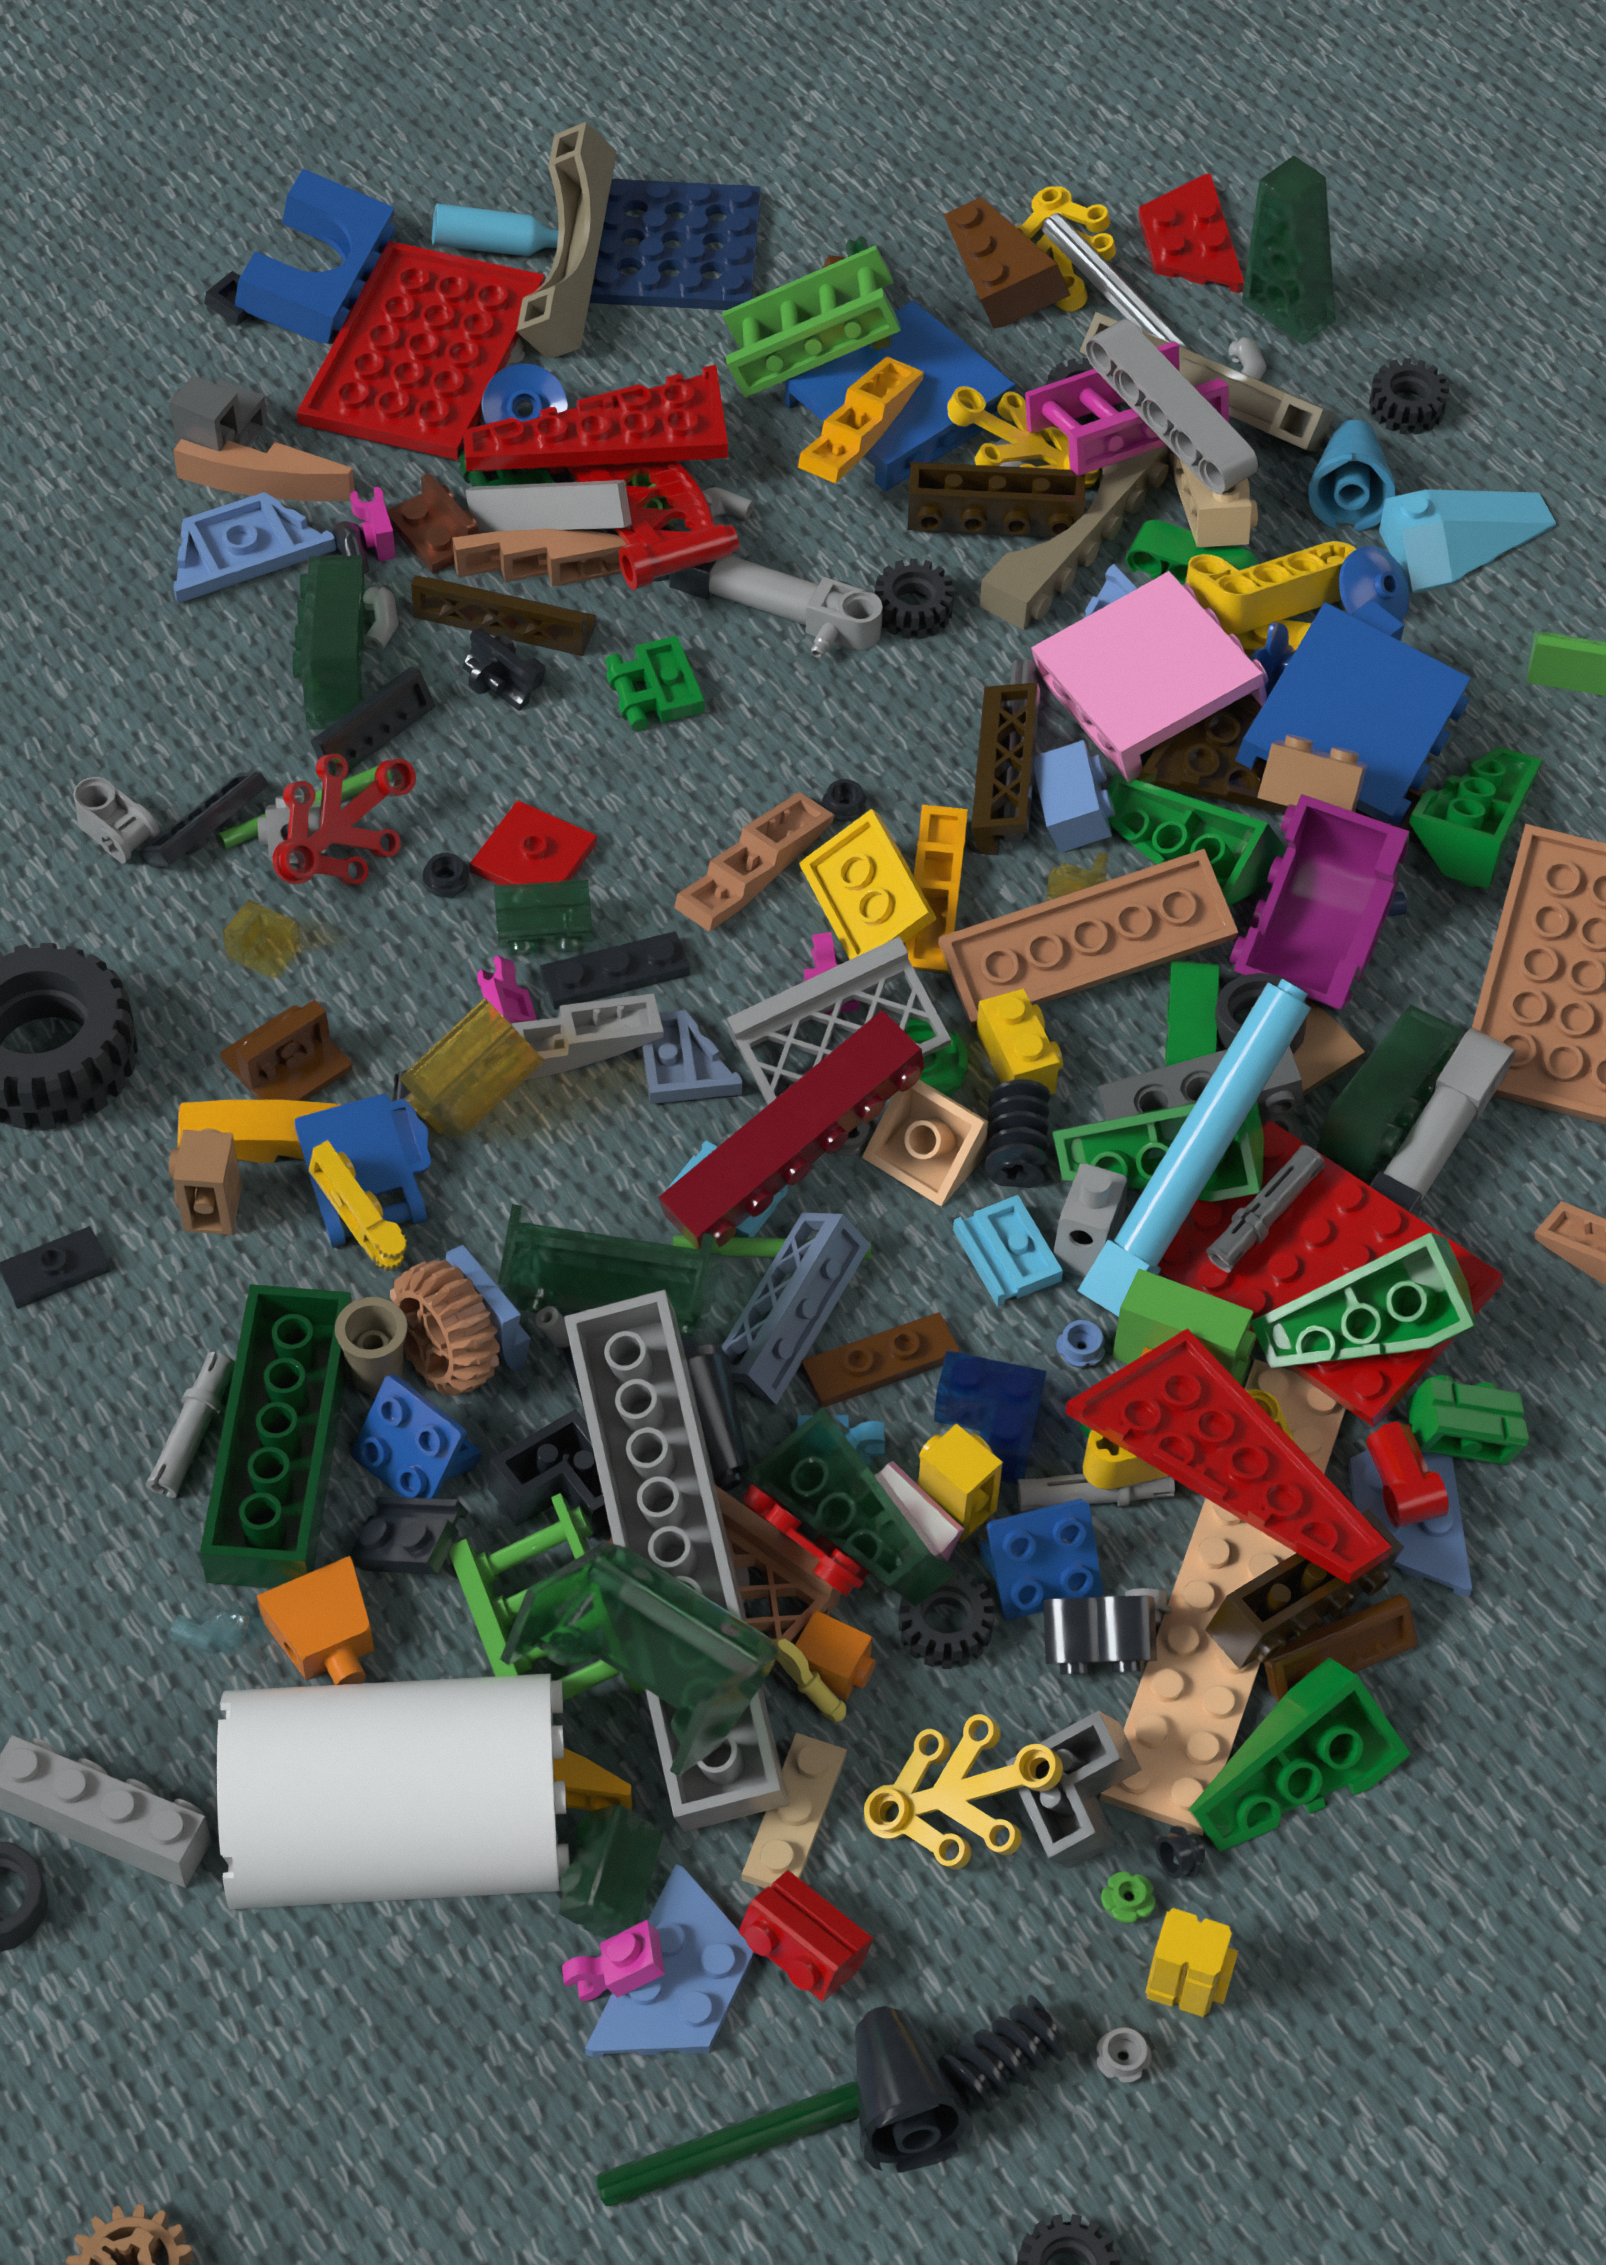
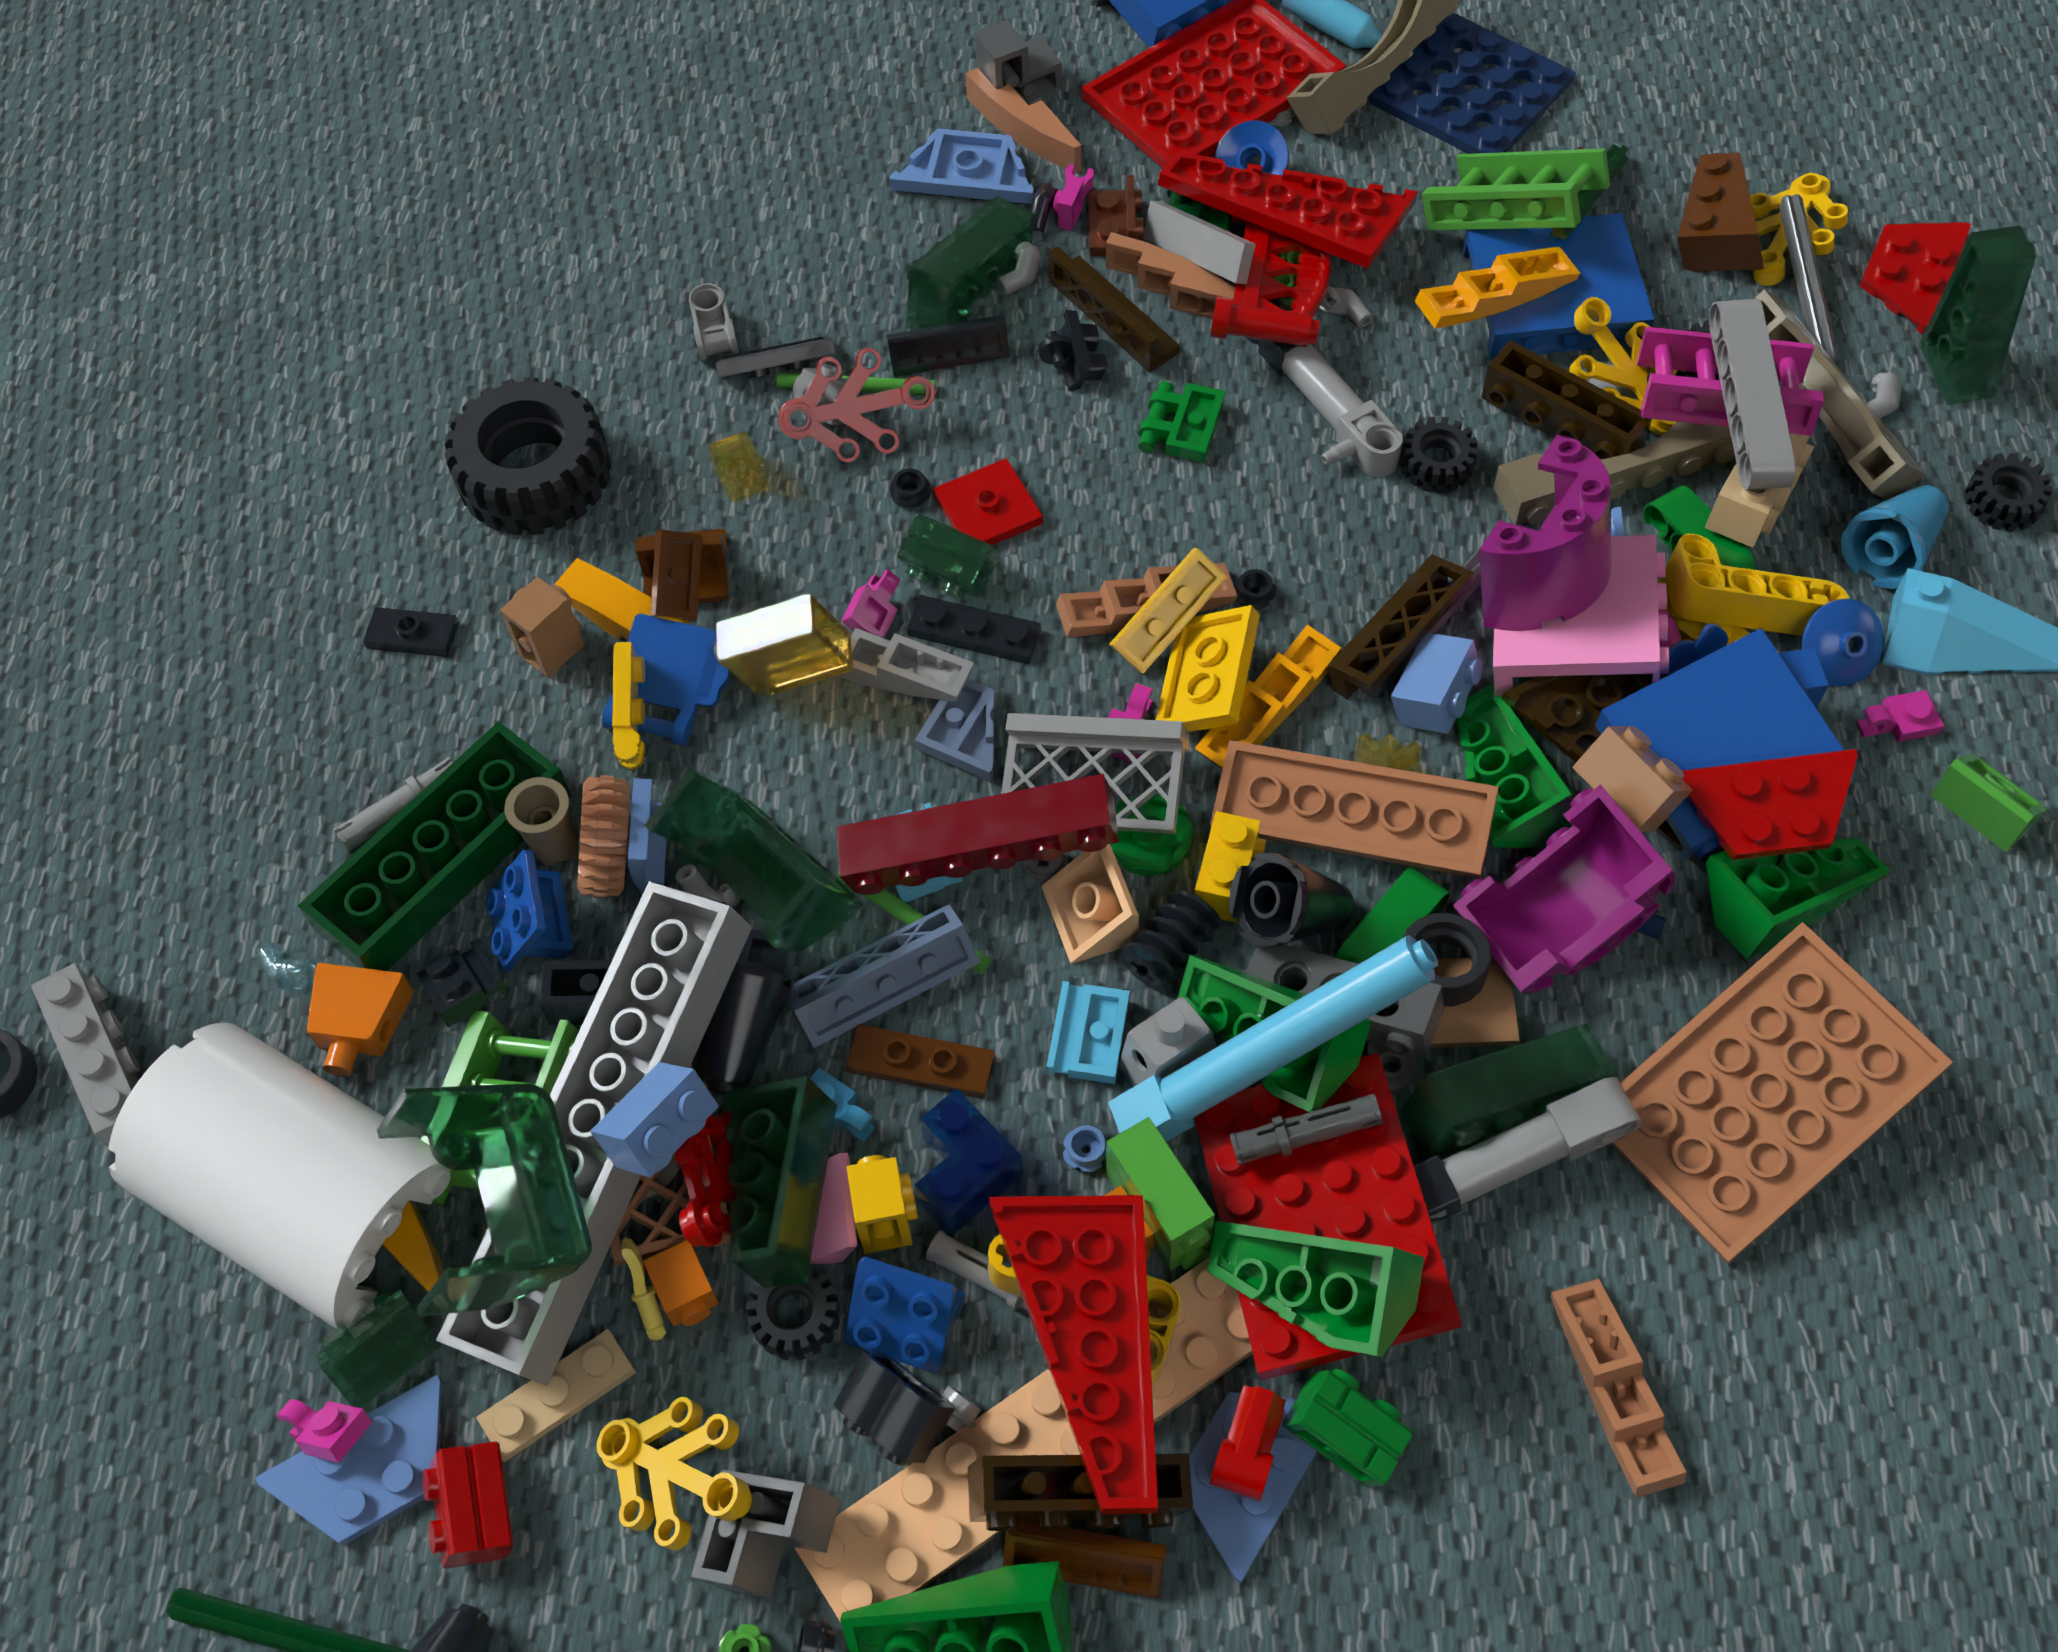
camera: 40 degrees right, 5 degrees up
(309, 1062) = (676, 575): none -> reddish brown plate
(743, 1501) = (655, 1119): none -> medium blue brick
(792, 856) = (1168, 610): none -> yellow tile
(1097, 1041) = (1286, 901): none -> black cone
(1111, 614) = (1563, 566): none -> magenta cylinder
(1434, 742) = (1773, 802): none -> red wing
(1462, 626) = (1905, 715): none -> dark pink plate

